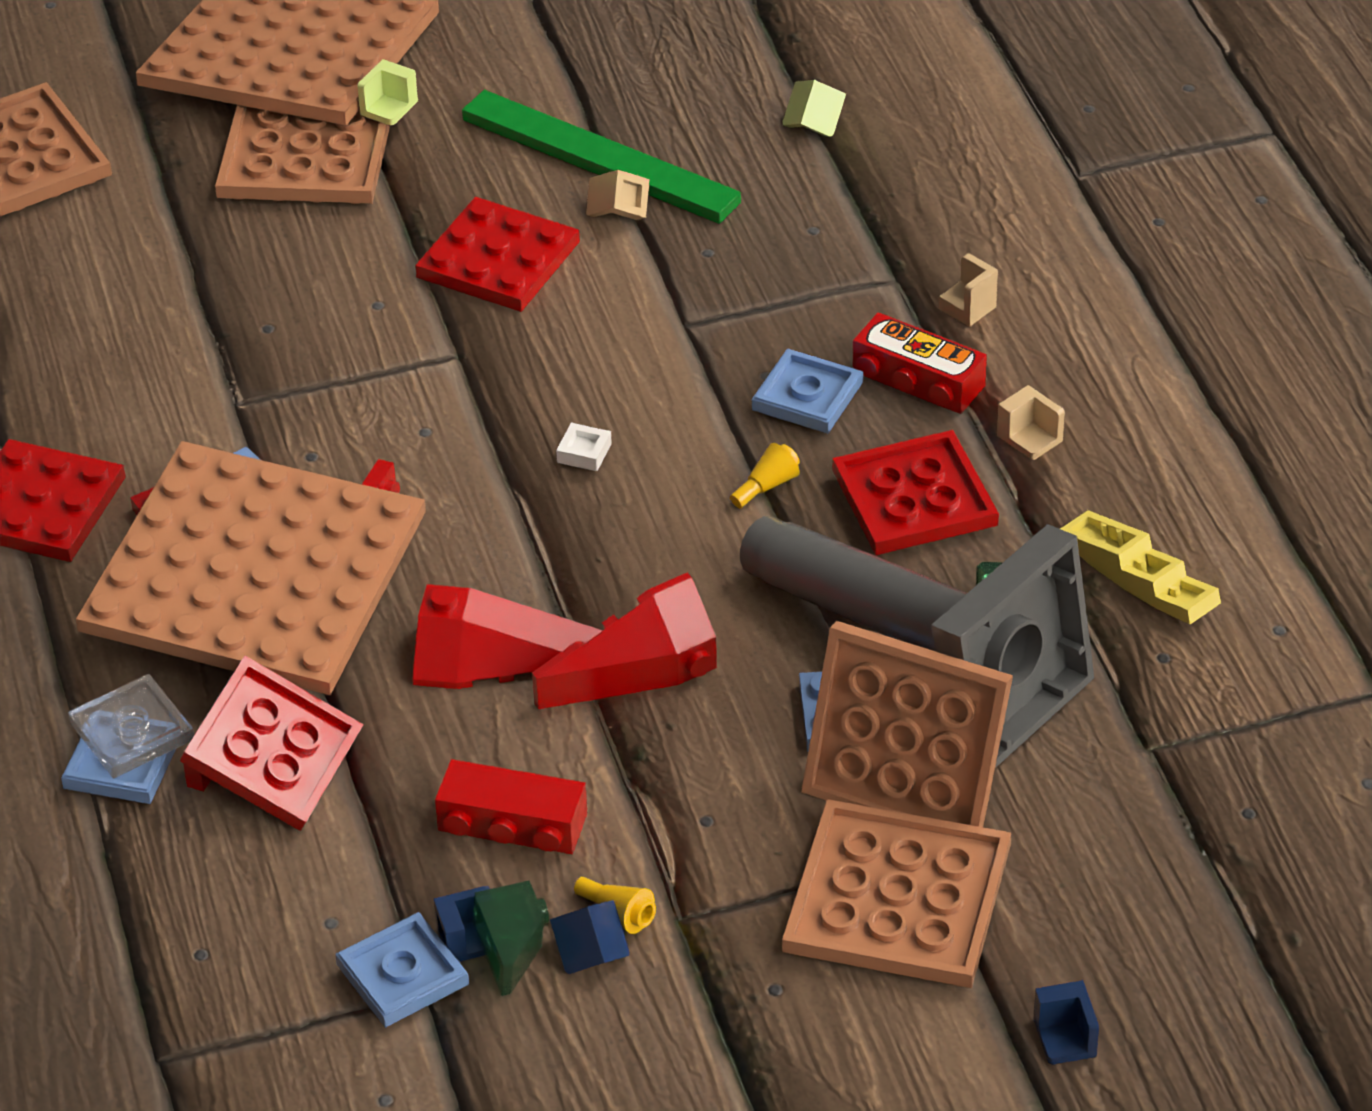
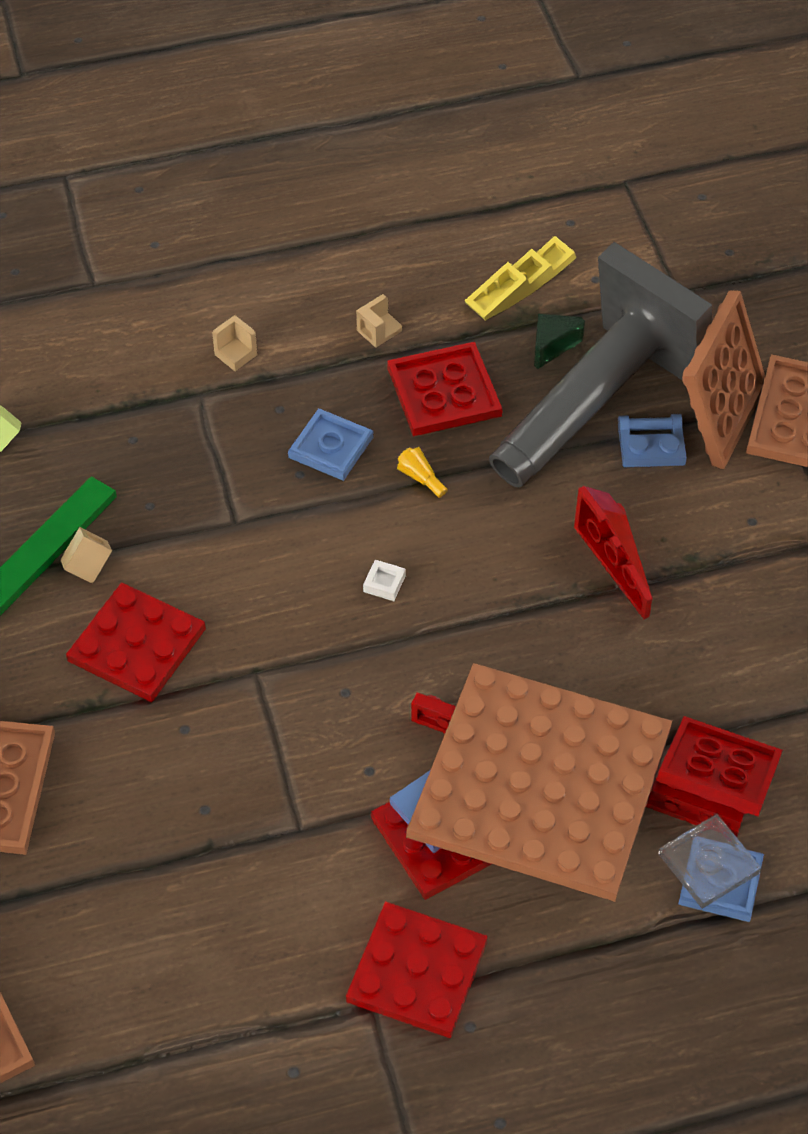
camera: 90 degrees left, 10 degrees up
(482, 636) = (594, 640): red wedge -> none
(511, 806) = (763, 623): red brick -> none
(919, 363) = (310, 377): red brick -> none

